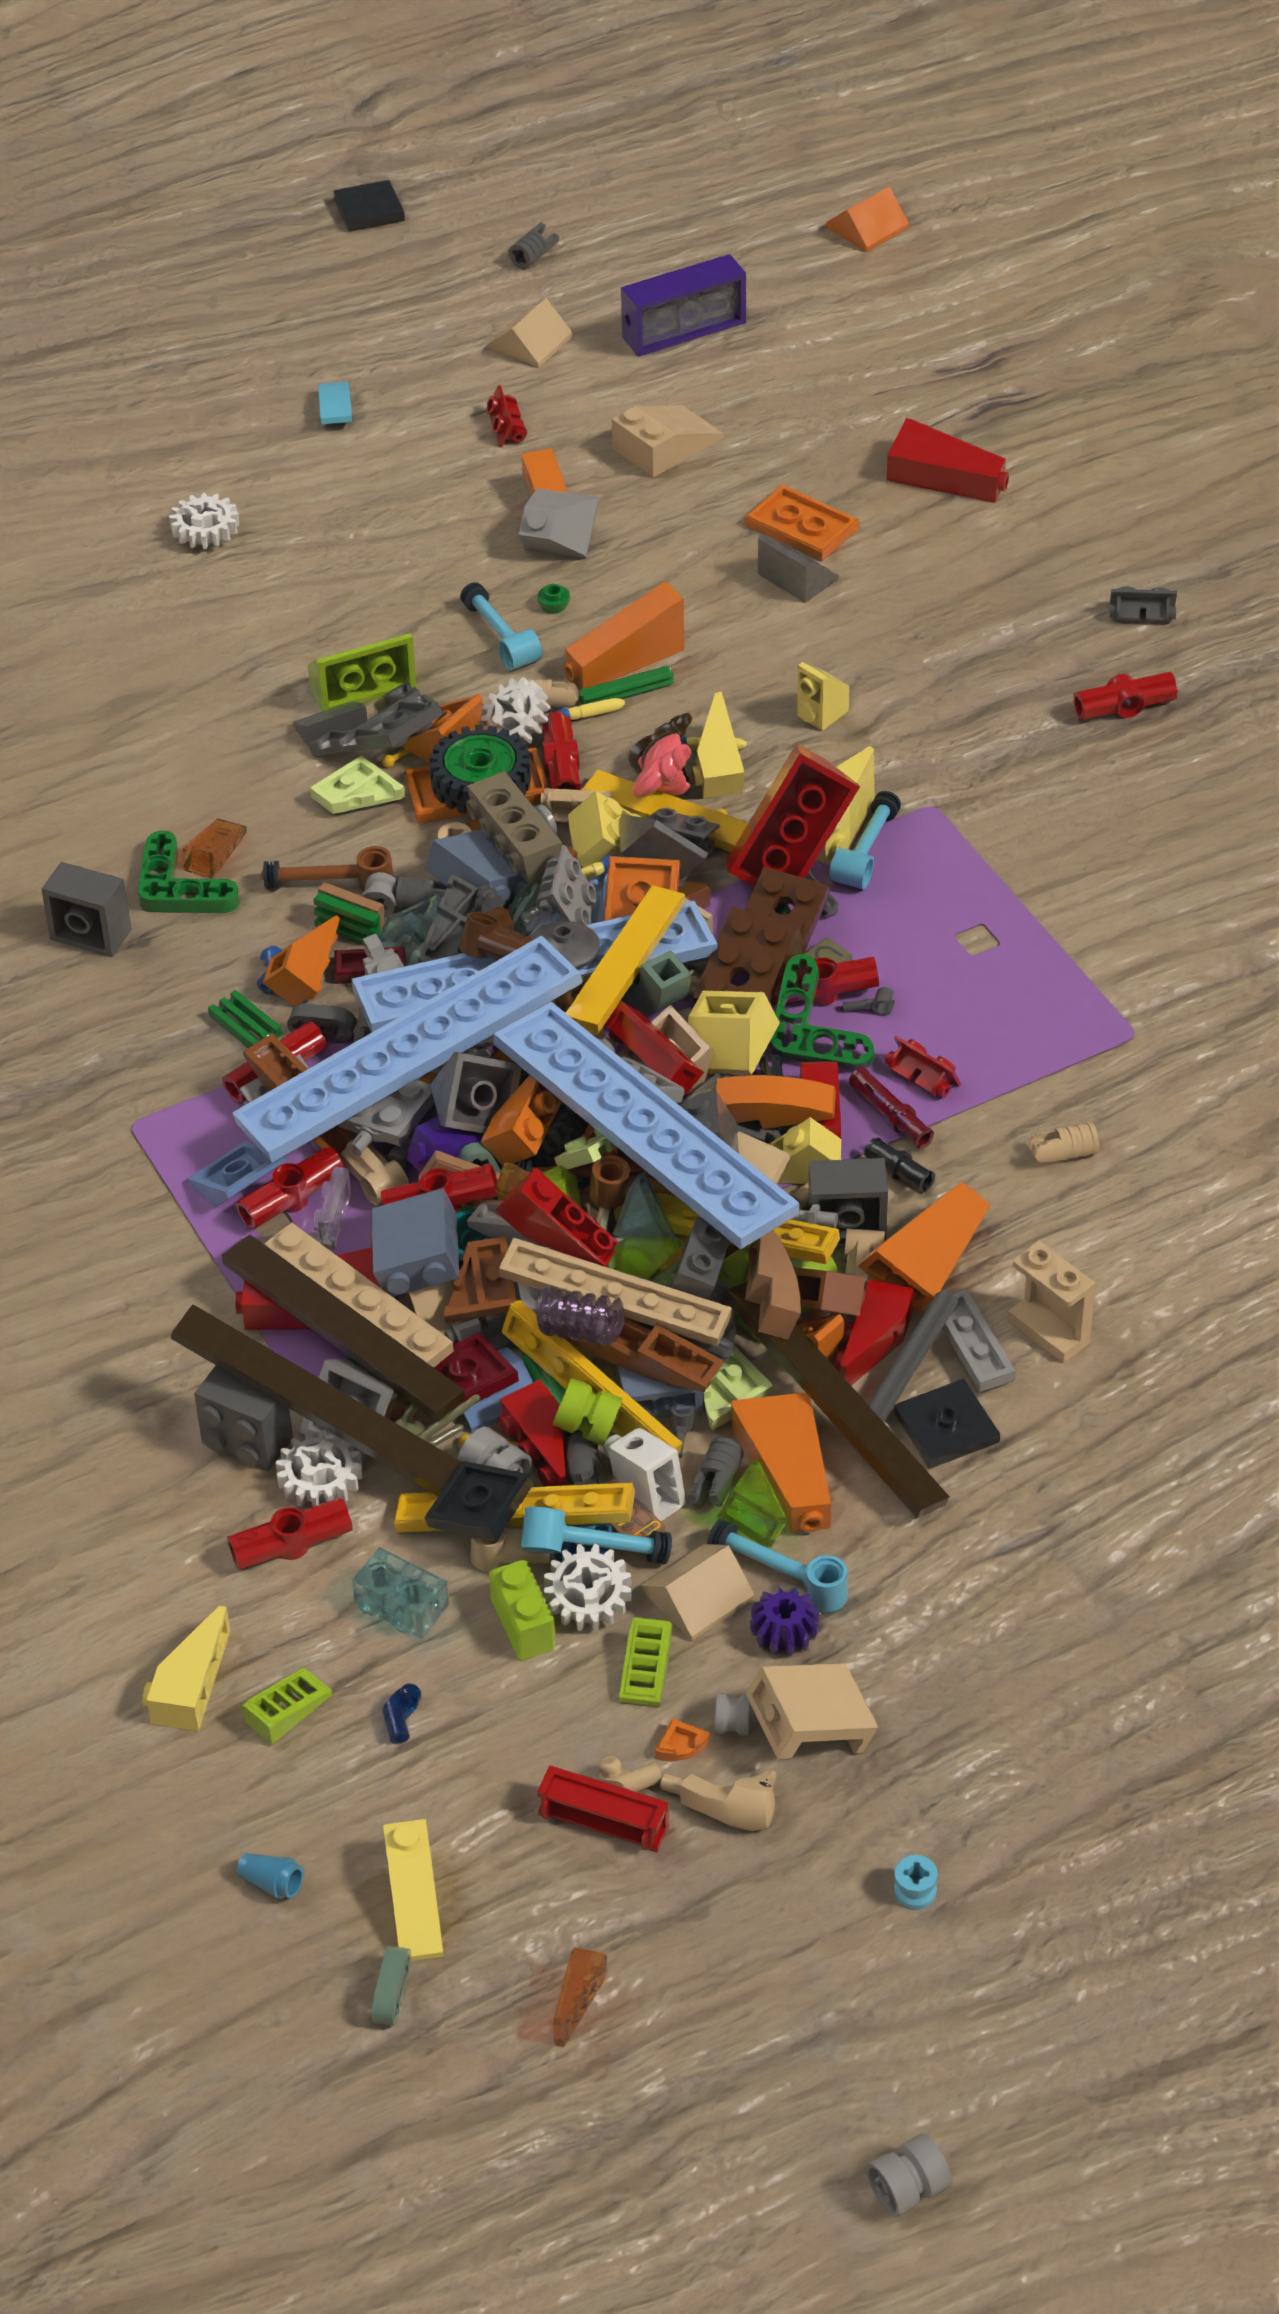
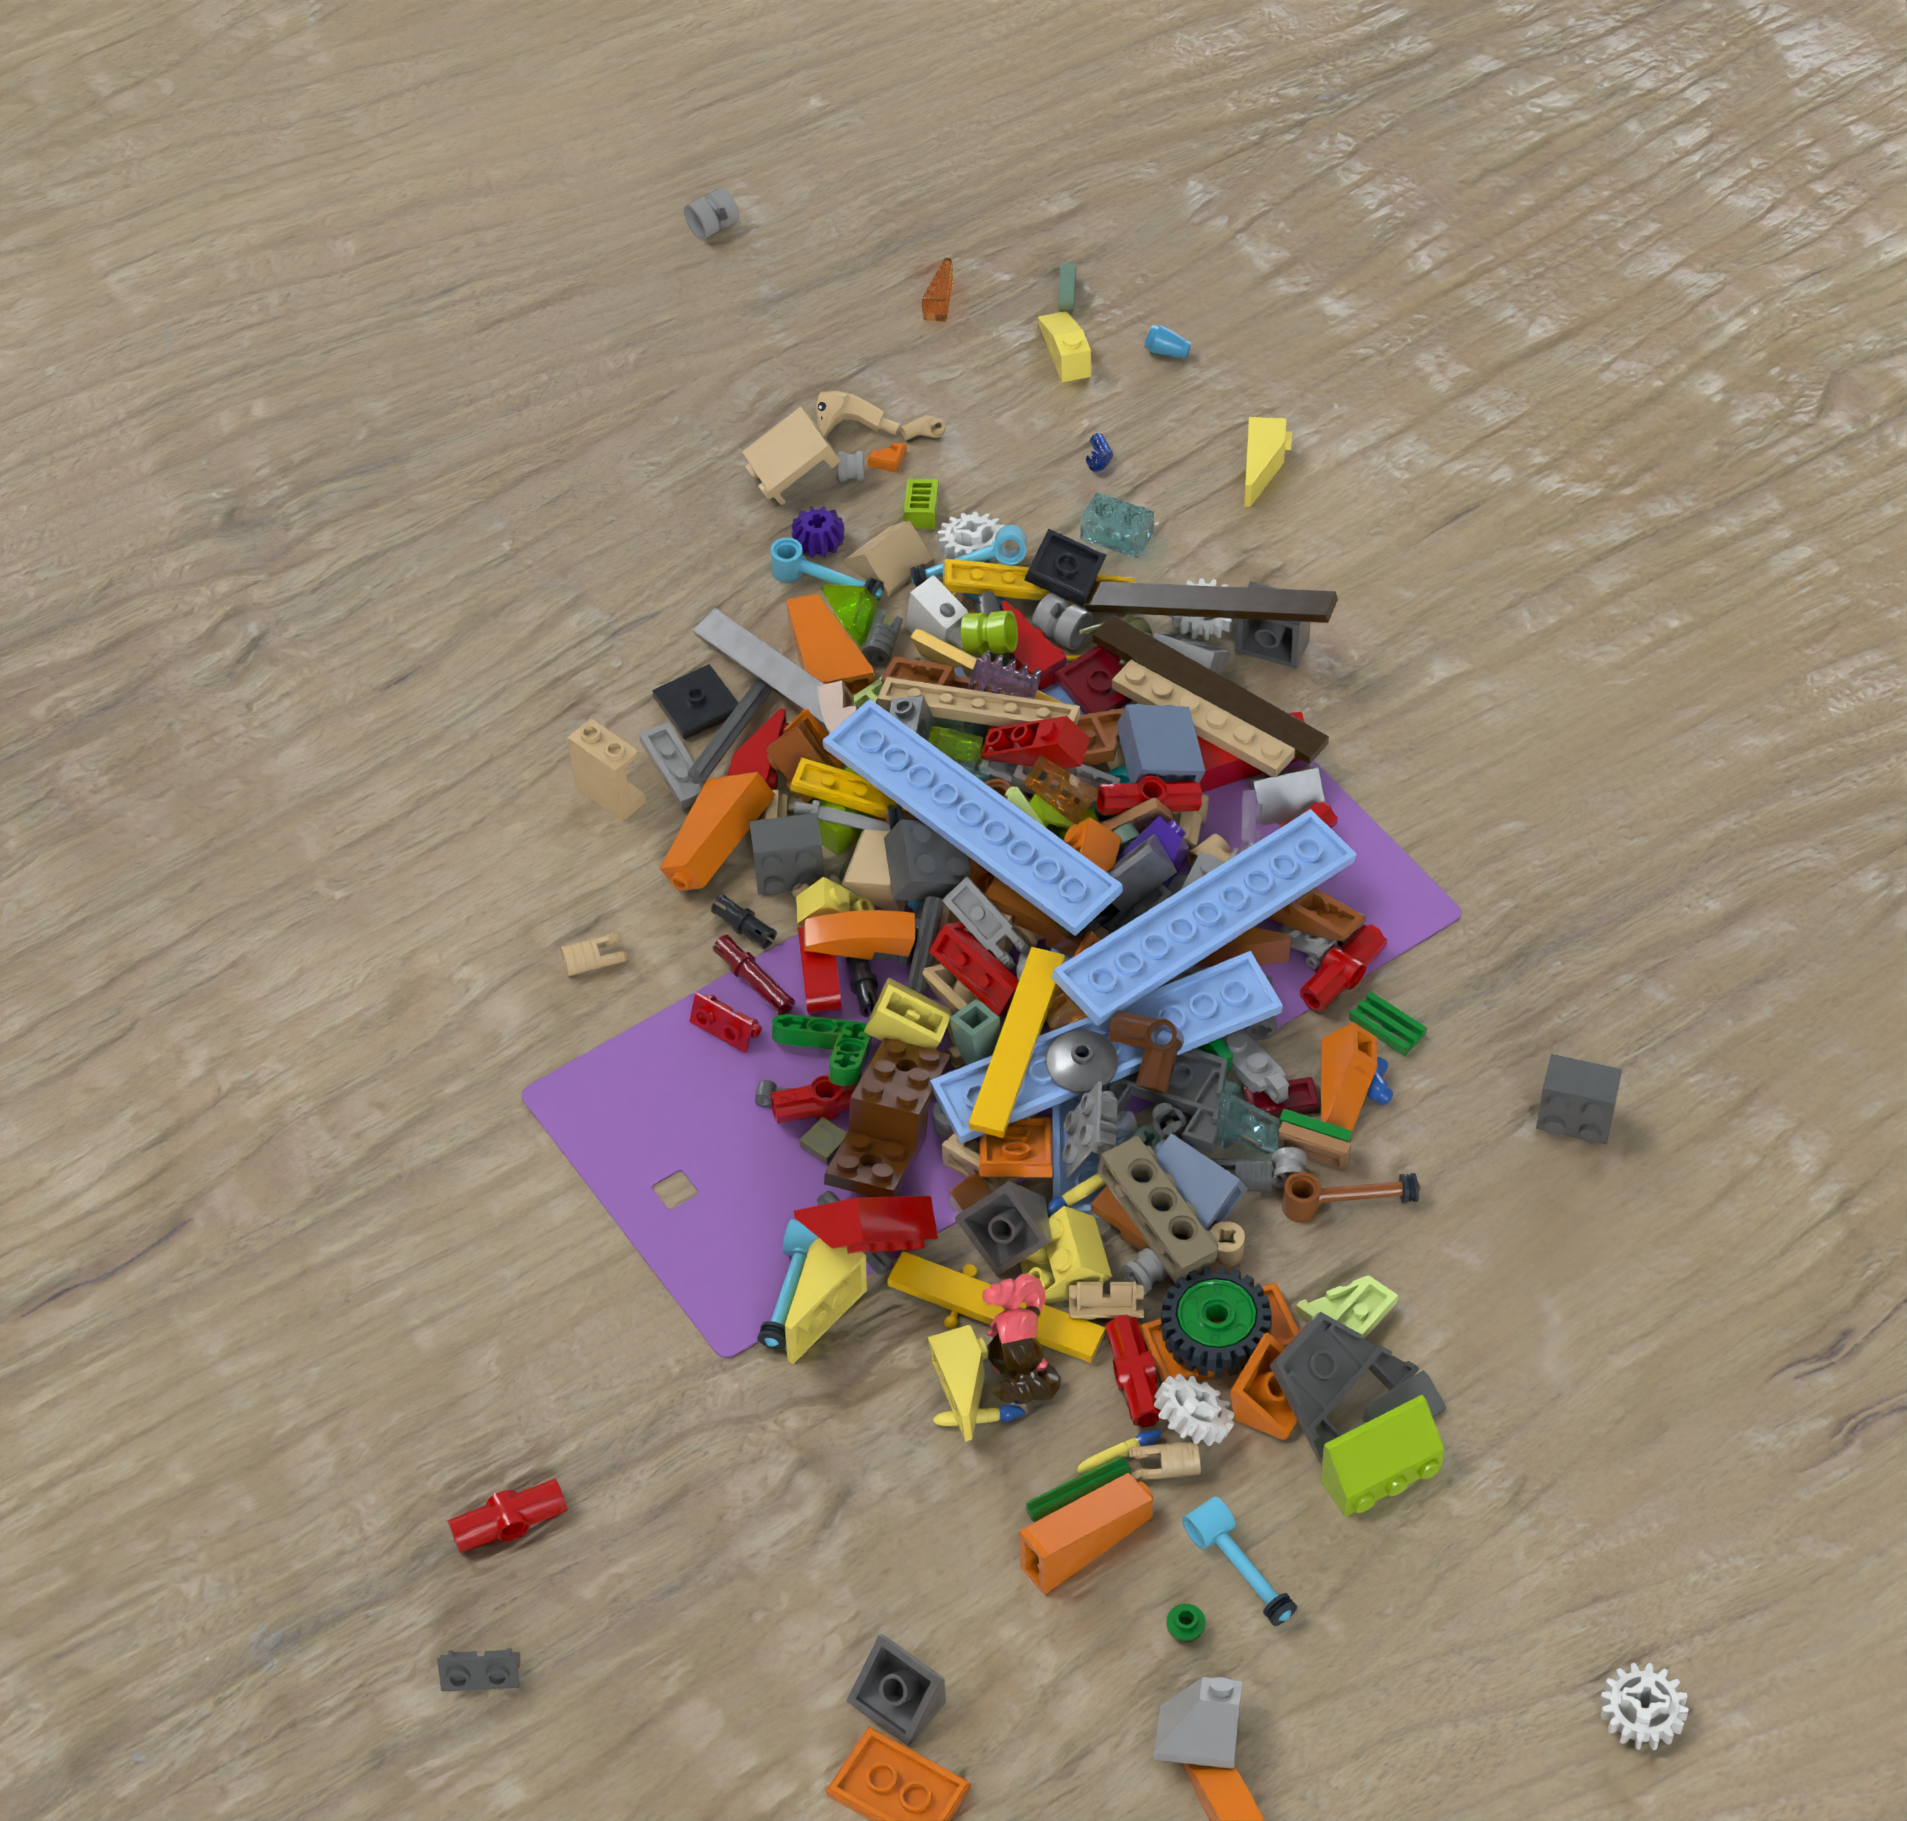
camera: 175 degrees right, 5 degrees up
(167, 884) = (1516, 1172): green beam -> none
(210, 851) = (1487, 1201): clear orange slope -> none
(232, 1173) = (1369, 857): medium blue slope -> none
(273, 1728) = (1193, 433): lime slope -> none
(289, 1533) = (1215, 558): red piece -> none
(334, 1022) = (1310, 1015): dark grey beam -> none
(522, 1609) = (1017, 508): lime brick -> none
(603, 1808) = (938, 399): red container -> none
(693, 828) = (983, 1265): dark grey hinge -> none
(820, 697) = (851, 1465): light yellow slope -> none
(915, 1893) = (712, 378): medium azure wheel -> none

